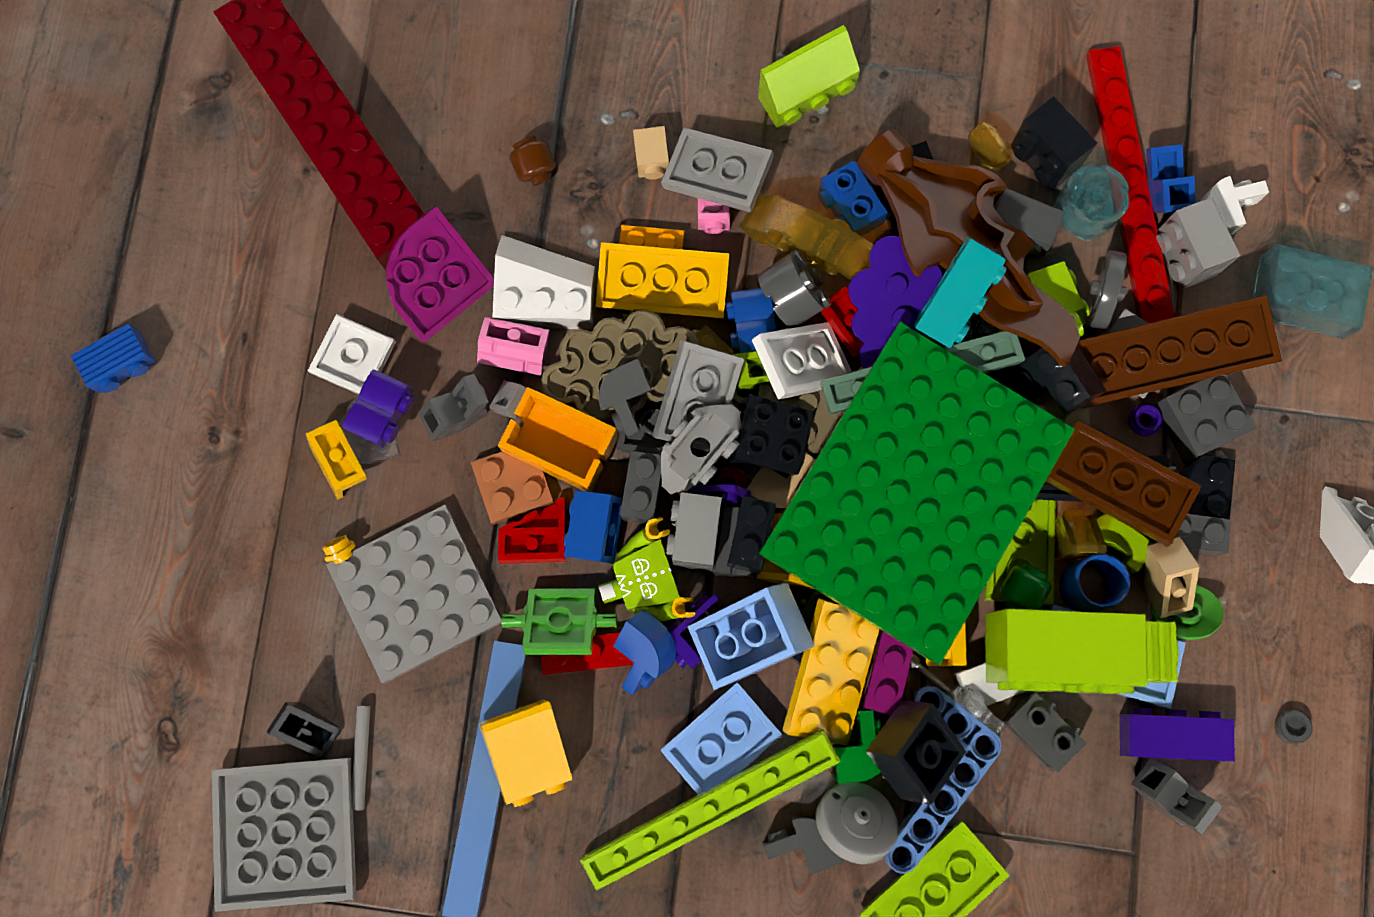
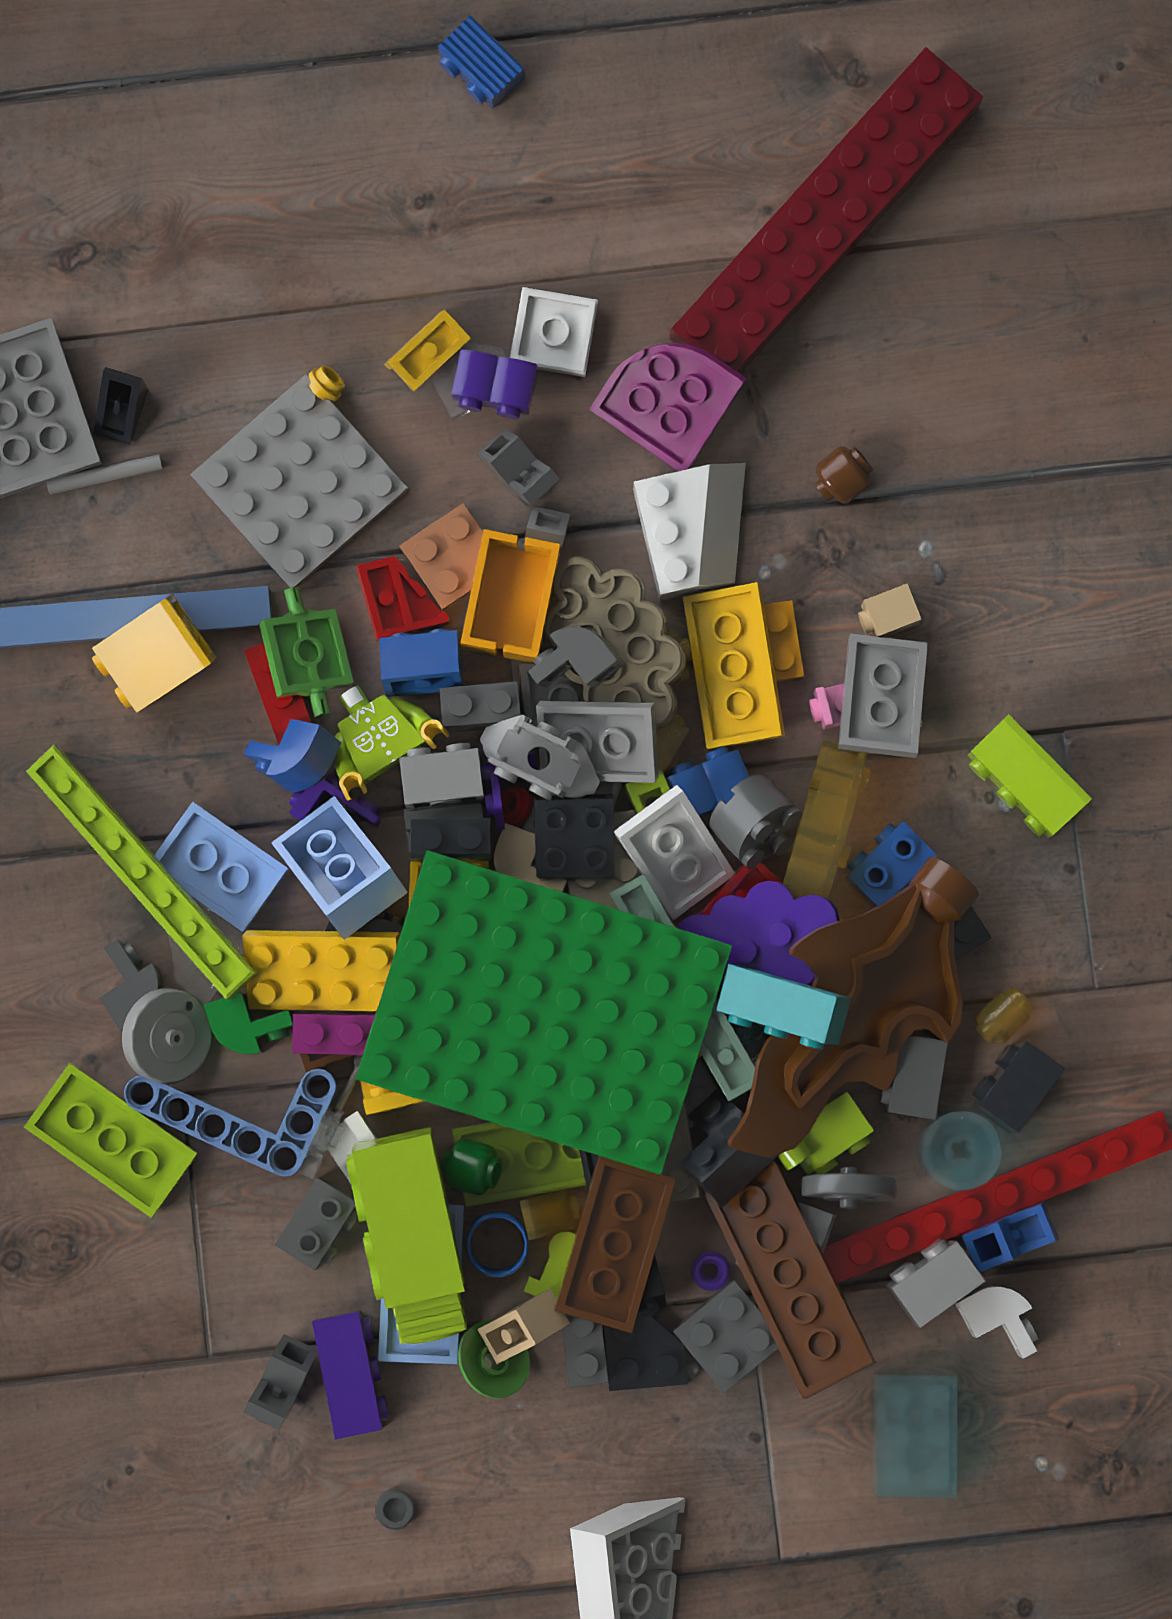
camera: 70 degrees right, 5 degrees up
(512, 346) = (609, 514): bright pink brick -> none
(916, 751) = (257, 1079): black brick -> none

